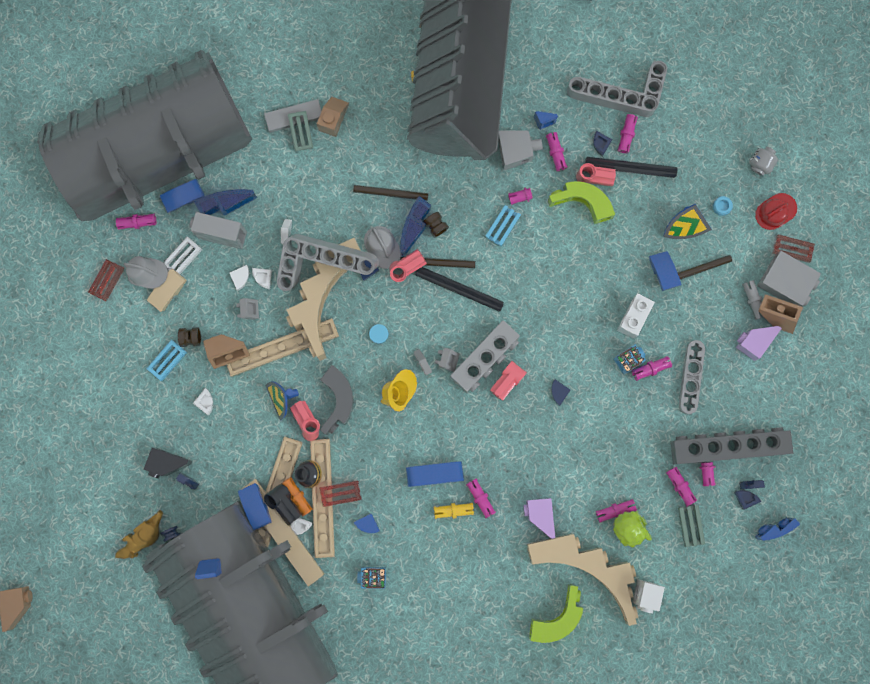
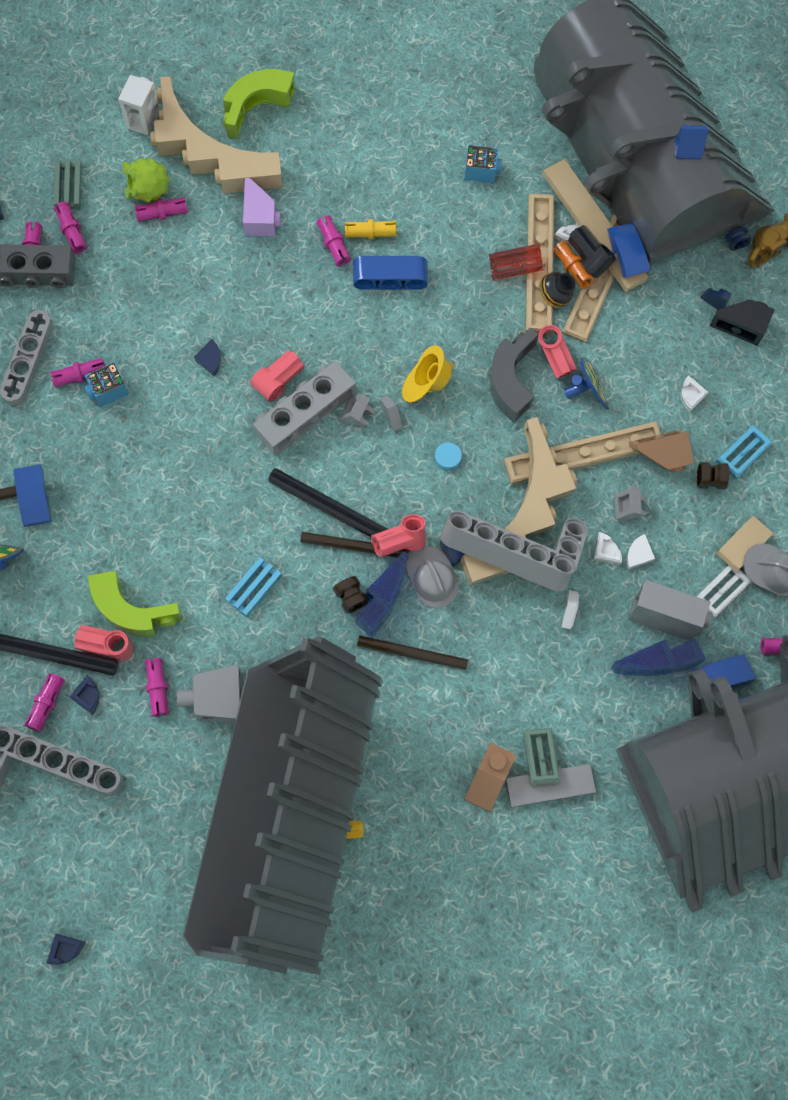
camera: 175 degrees left, 10 degrees down
(367, 524) = (483, 226): blue tile -> none
(520, 196) = (219, 625): dark pink pin -> none
(545, 119) = (165, 734): blue slope -> none
(635, 316) = (86, 438): white brick -> none

